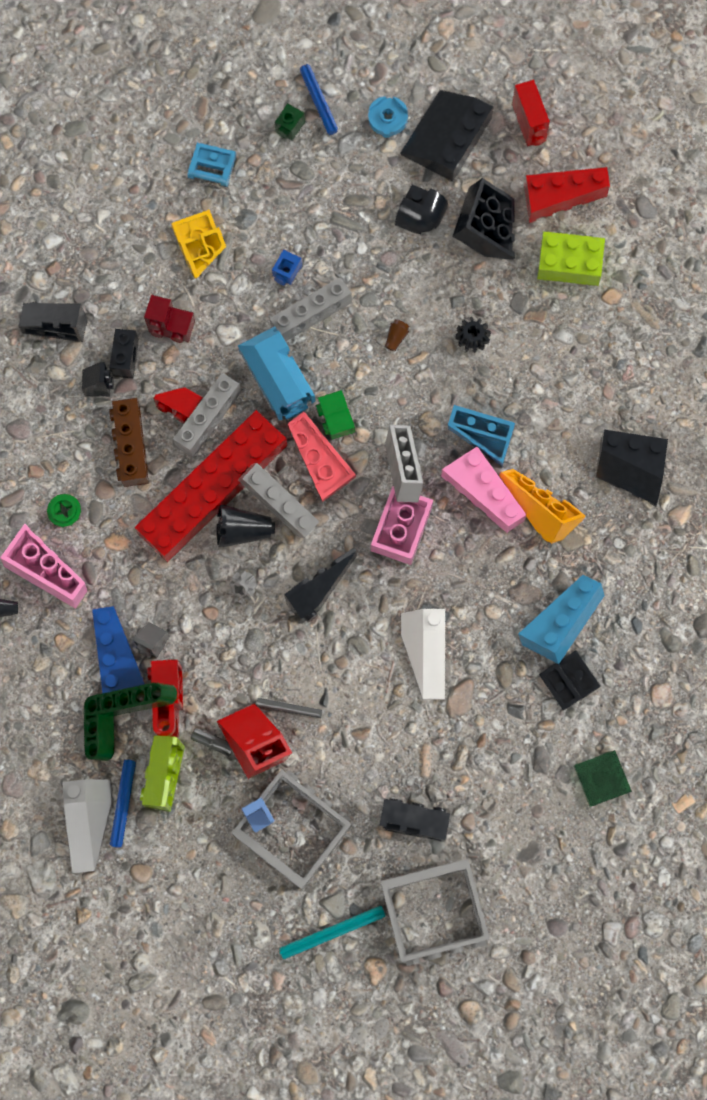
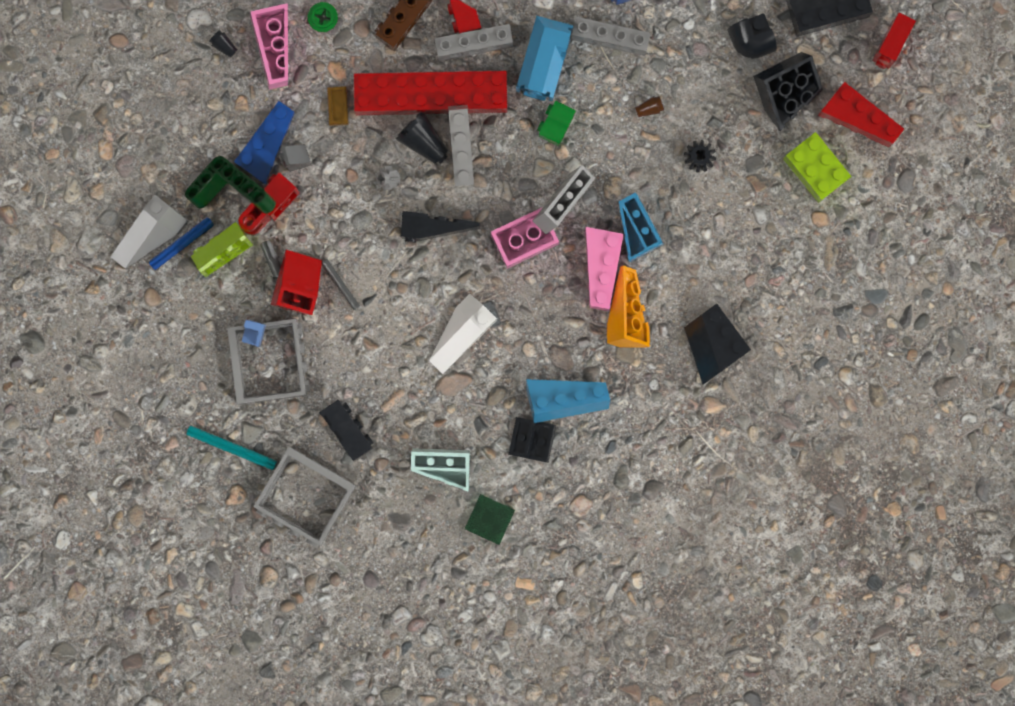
camera: 40 degrees right, 10 degrees up
(145, 568) = (337, 106): none -> pearl gold tile
(321, 459) = (518, 143): coral wing -> none
(524, 768) = (443, 465): none -> light aqua wedge

